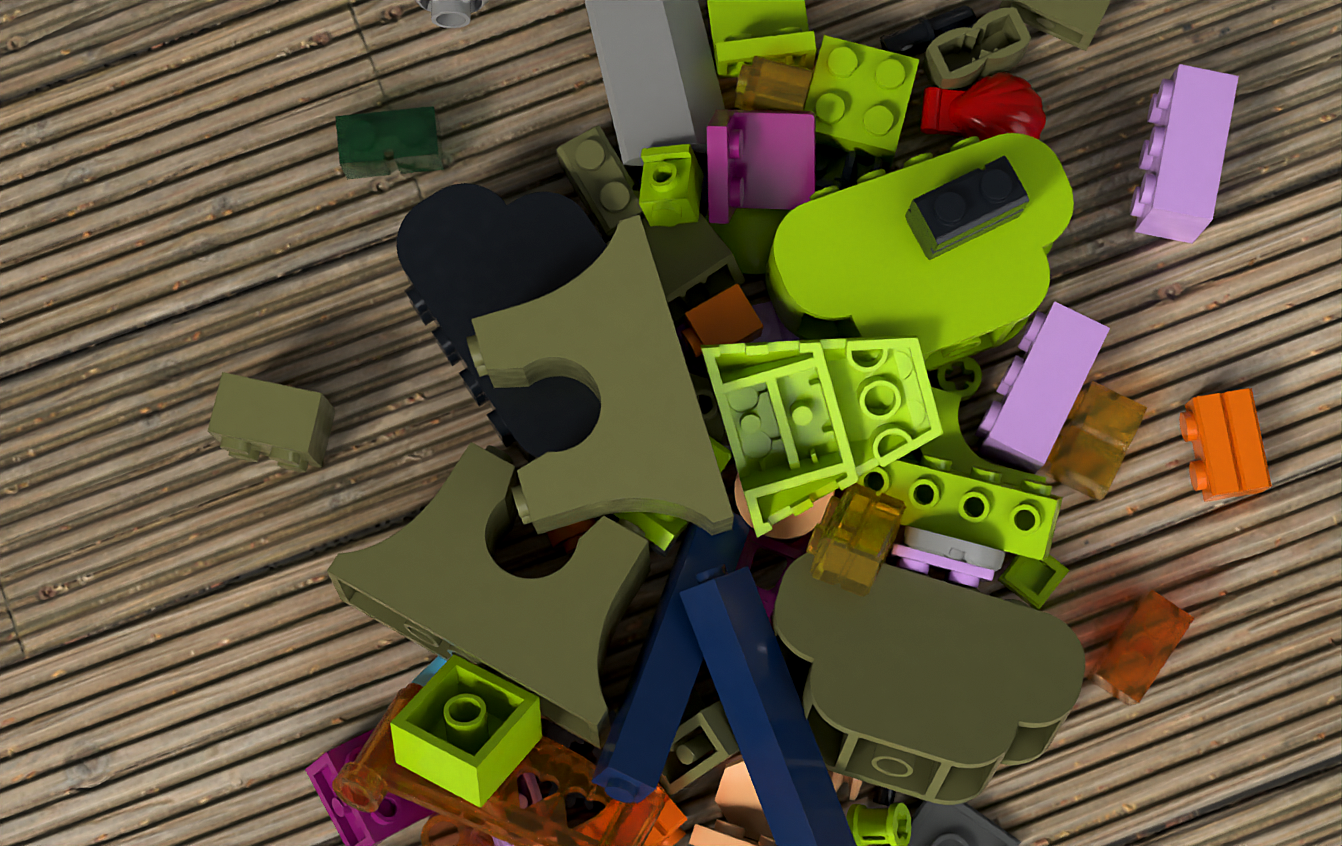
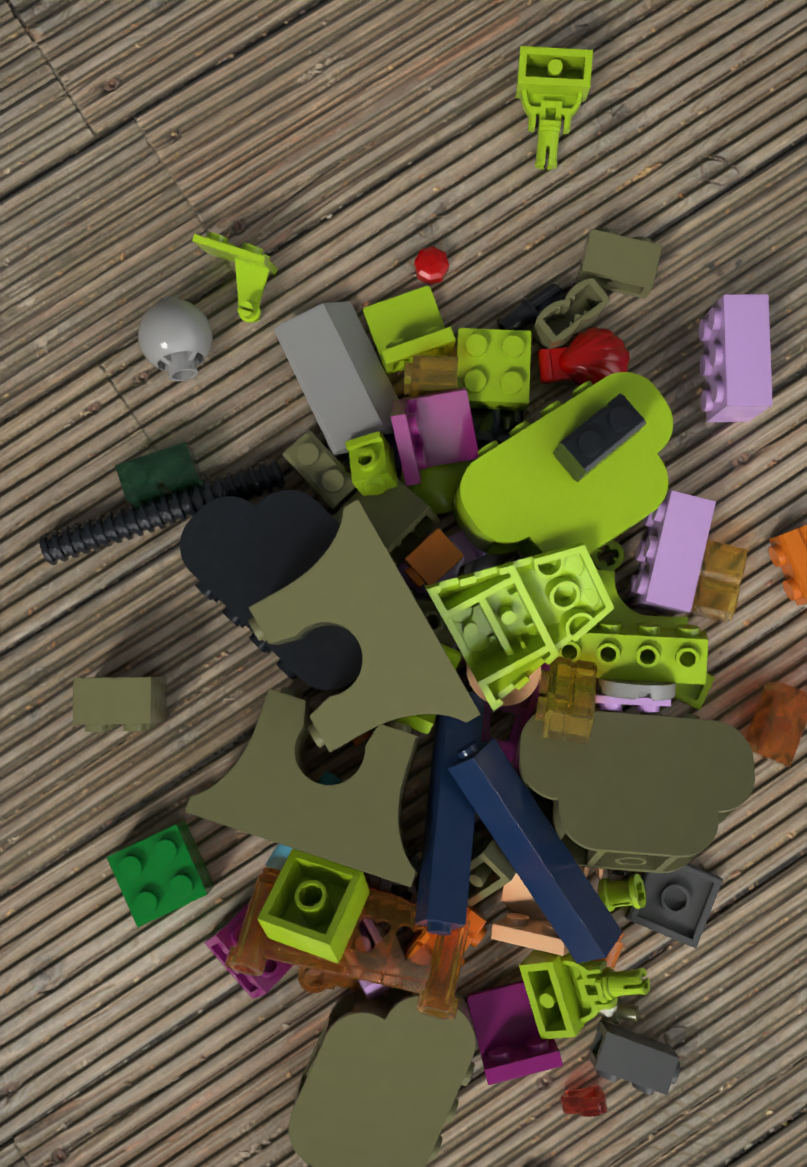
camera: 20 degrees left, 5 degrees up
(271, 659) = (161, 873): none -> green brick
(372, 191) = (157, 512): none -> black piece

